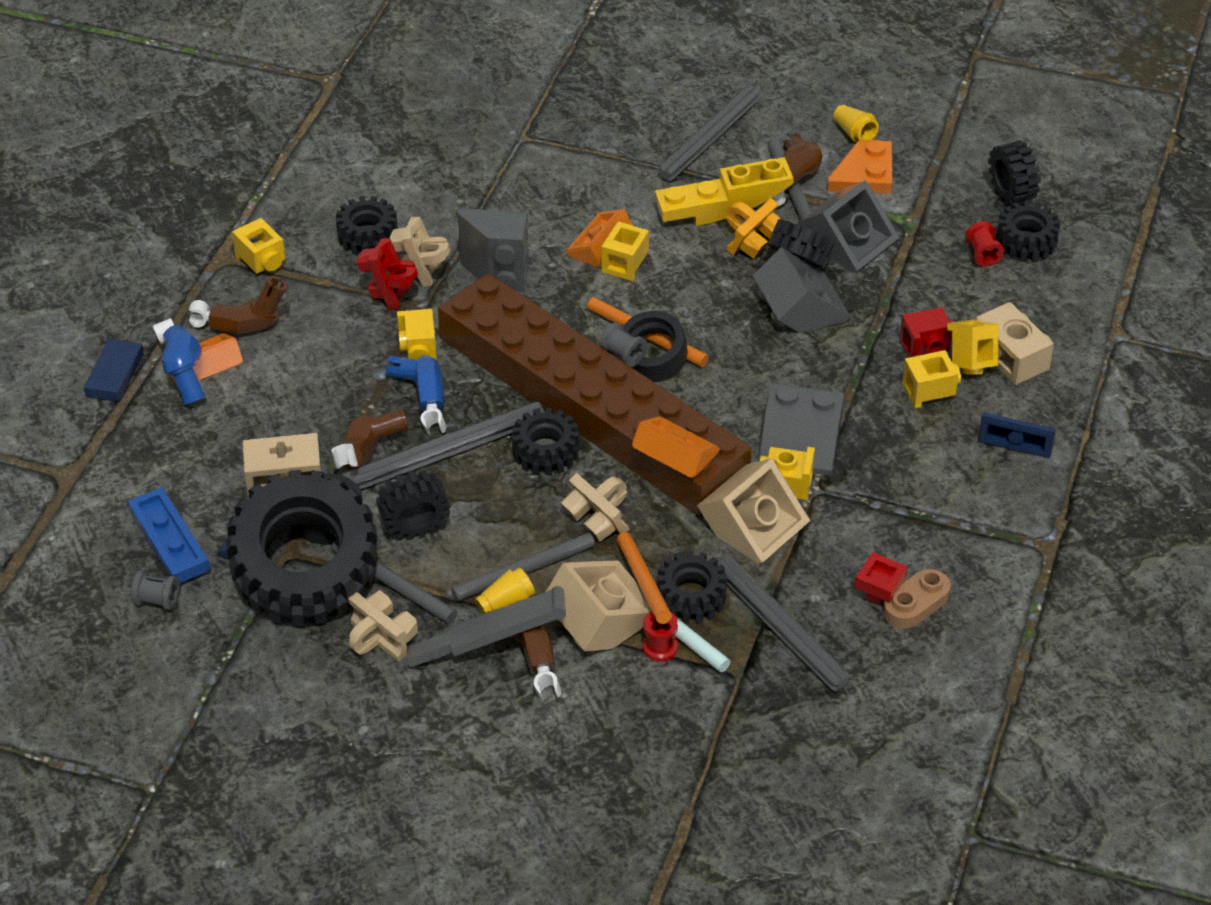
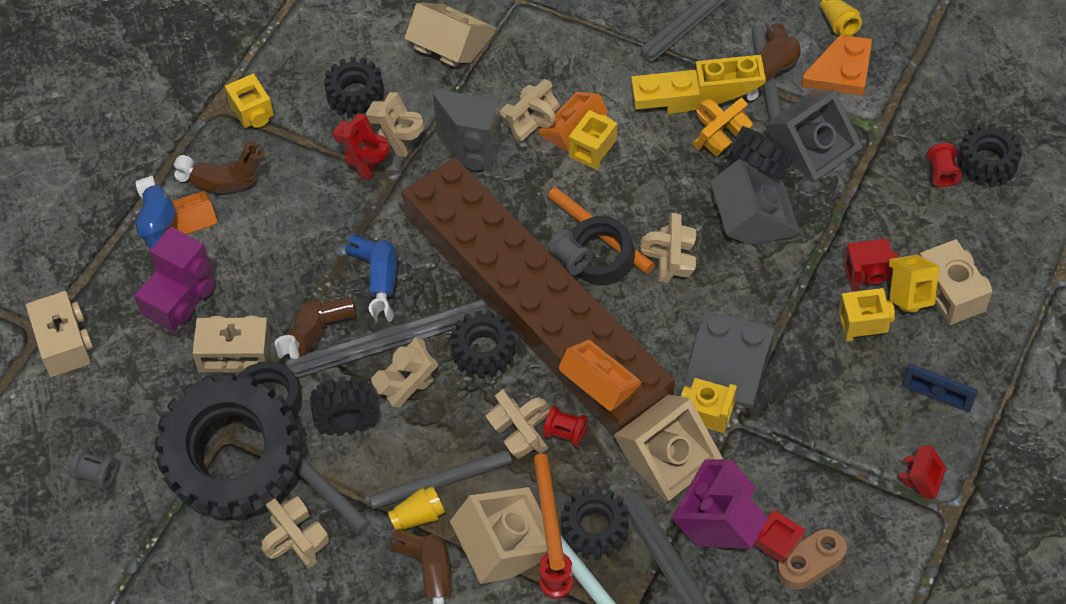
camera: 10 degrees right, 10 degrees up
(95, 472) = (59, 334): none -> tan brick
(113, 370) = (96, 221): dark blue tile -> none
(168, 535) = (116, 409): blue plate -> none
(216, 409) = (179, 282): none -> magenta brick
(417, 333) = (381, 215): yellow brick -> none
(456, 168) = (447, 33): none -> tan slope
(476, 457) = (411, 359): none -> tan hips
(491, 627) = (395, 551): dark grey piece -> none
(559, 219) = (536, 98): none -> tan hips
(633, 509) = (565, 426): none -> red bush
(724, 340) = (671, 241): none -> tan hips
(818, 556) = (720, 507): none -> magenta brick
(1014, 172) = (986, 90): black tyre -> none
(1015, 509) = (925, 473): none -> red tile

